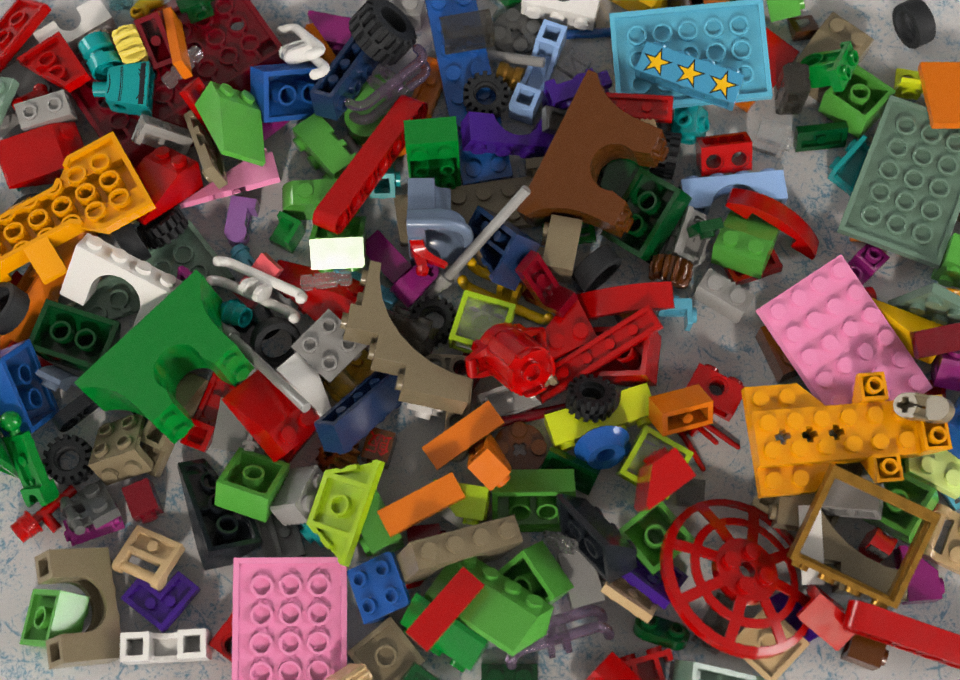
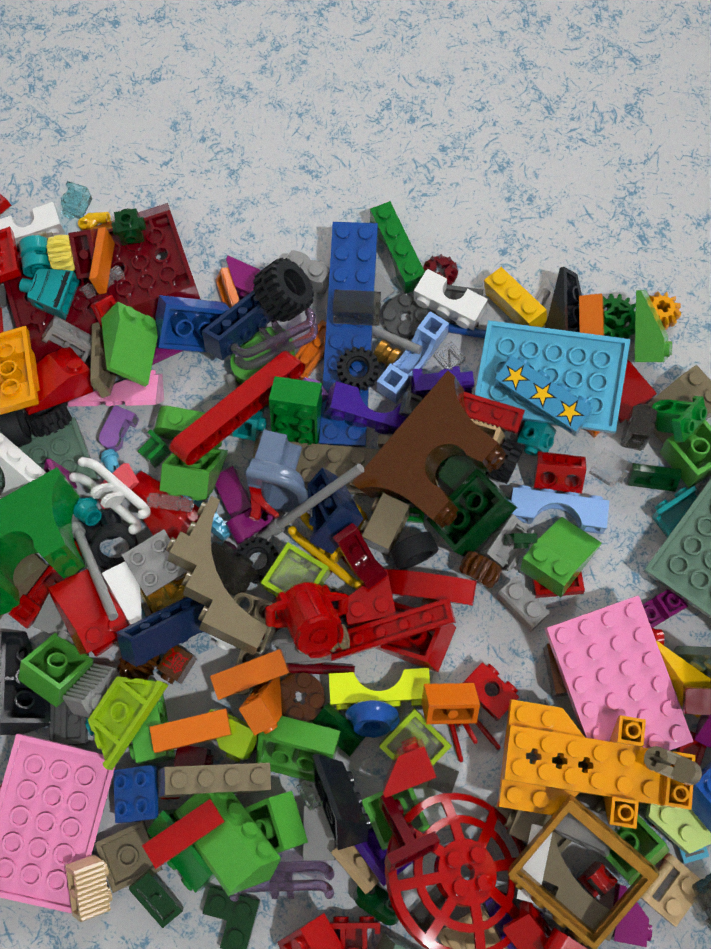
camera: 20 degrees right, 0 degrees up
(303, 50) = (209, 291): white piece -> none
(322, 146) = (205, 378): bright green wedge -> none
(587, 408) = (371, 680): black tyre -> none
(675, 546) = (405, 836): none -> dark red bracket
(682, 308) = (482, 605): medium azure bracket -> none
(777, 214) = (592, 542): red slope -> none
(802, 27) = (666, 371): reddish brown slope -> none

